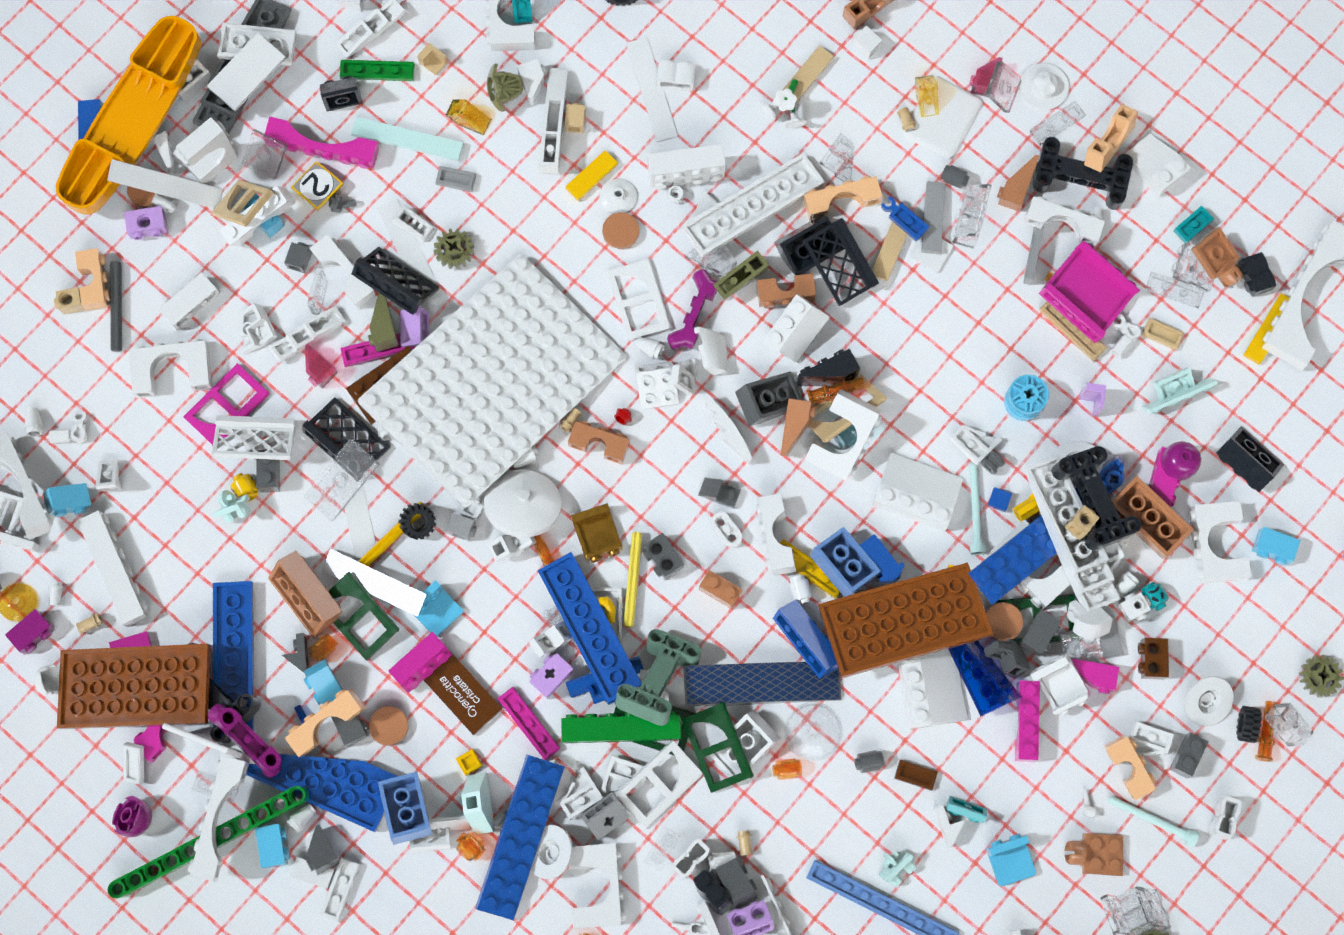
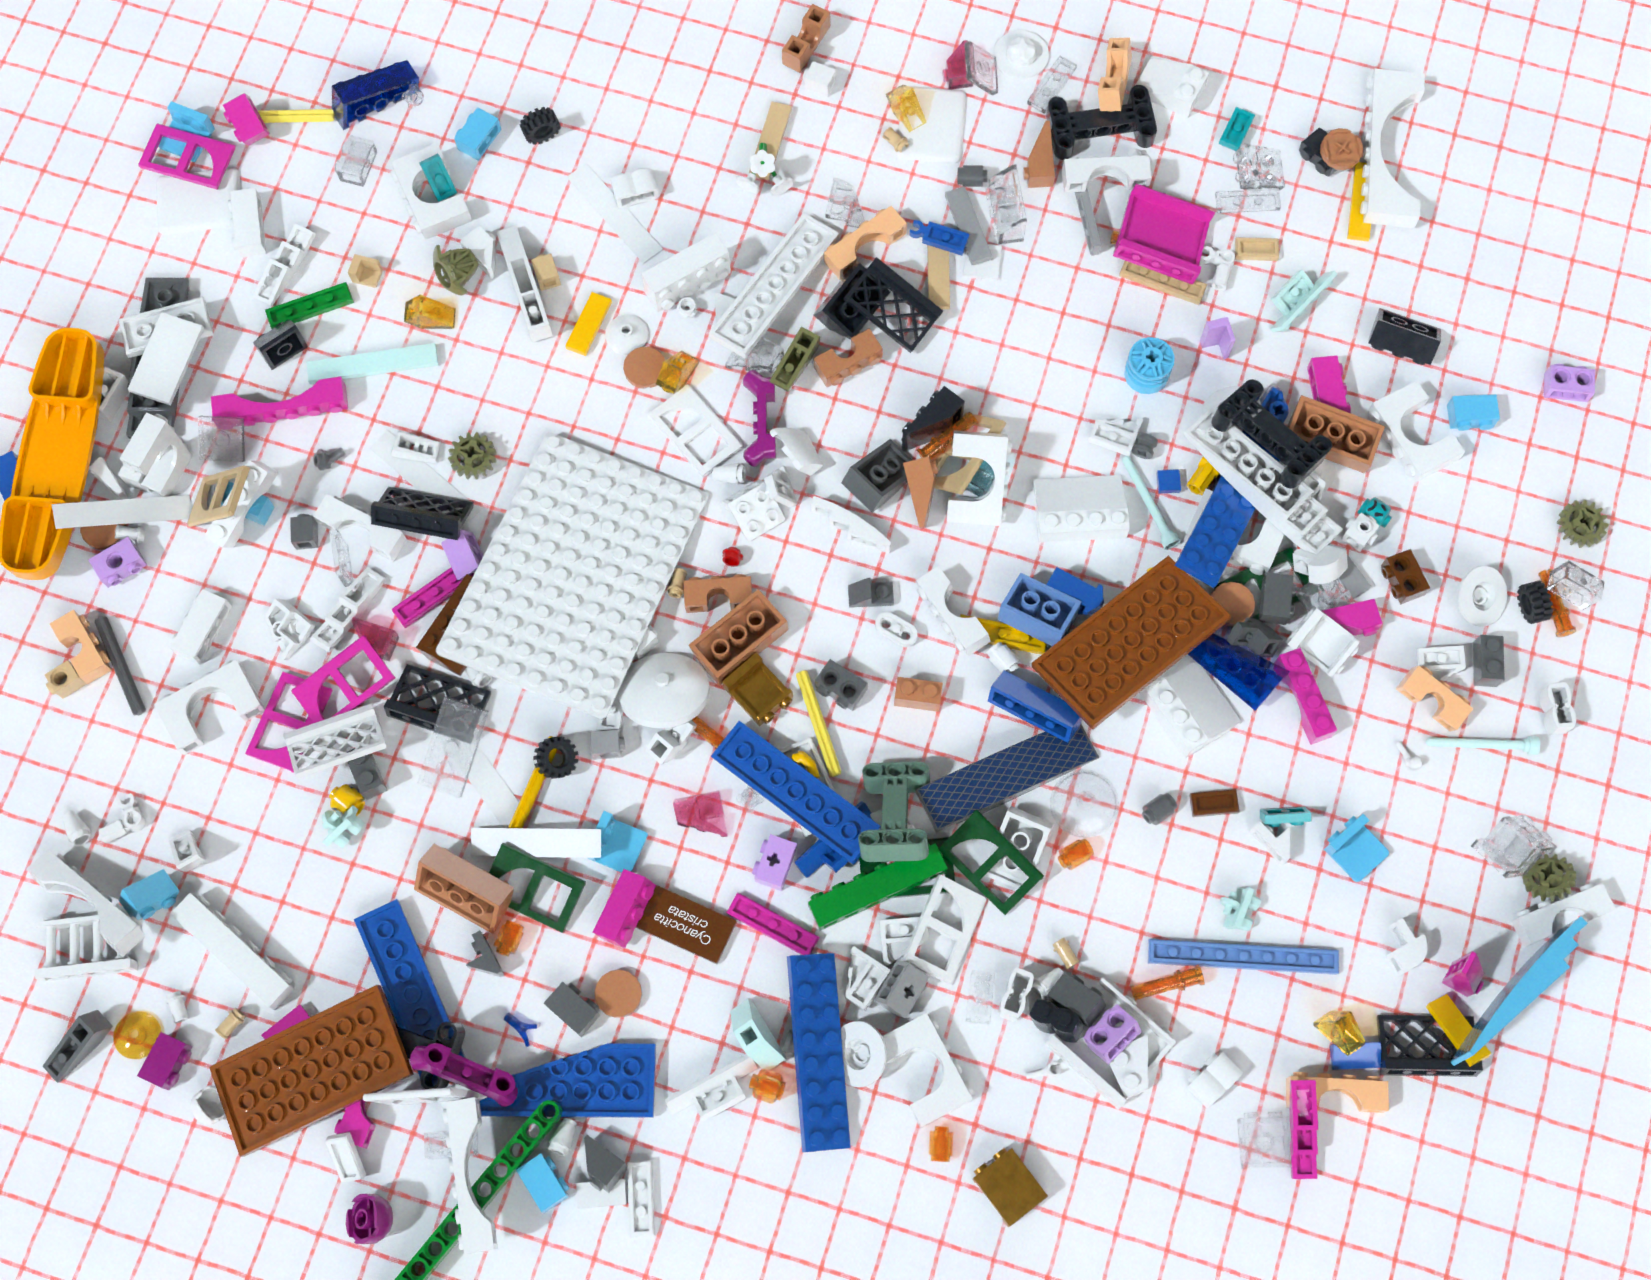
camera: 20 degrees left, 5 degrees down
(251, 387) = (309, 690): none -> dark pink window
(305, 737) = (530, 1043): light nougat arch -> none
(317, 186) = (293, 449): slope -> none
(323, 682) = (527, 976): medium azure brick -> none
(381, 326) = (428, 567): olive slope -> none
(405, 808) = (677, 1073): medium blue brick -> none
(455, 179) = (443, 384): light grey tile -> none
(469, 762) = (725, 995): yellow tile -> none
(512, 612) = (701, 812): none -> clear pink slope
(551, 640) = (759, 823): white brick -> none
(599, 484) = (738, 636): none -> nougat slope
(644, 245) = (676, 372): none -> clear yellow slope
(796, 328) = (877, 390): white slope -> none
(823, 902) = (1178, 980): none -> clear orange pin
(1075, 525) = (1269, 463): tan brick -> none
(1097, 854) = (1443, 804): nougat plate -> none
(1126, 584) = (1340, 512): white cone -> none
(1181, 460) = (1338, 363): magenta cylinder -> none
(1218, 257) = (1279, 149): nougat plate -> none
(1270, 279) = (1341, 149): none -> nougat tile

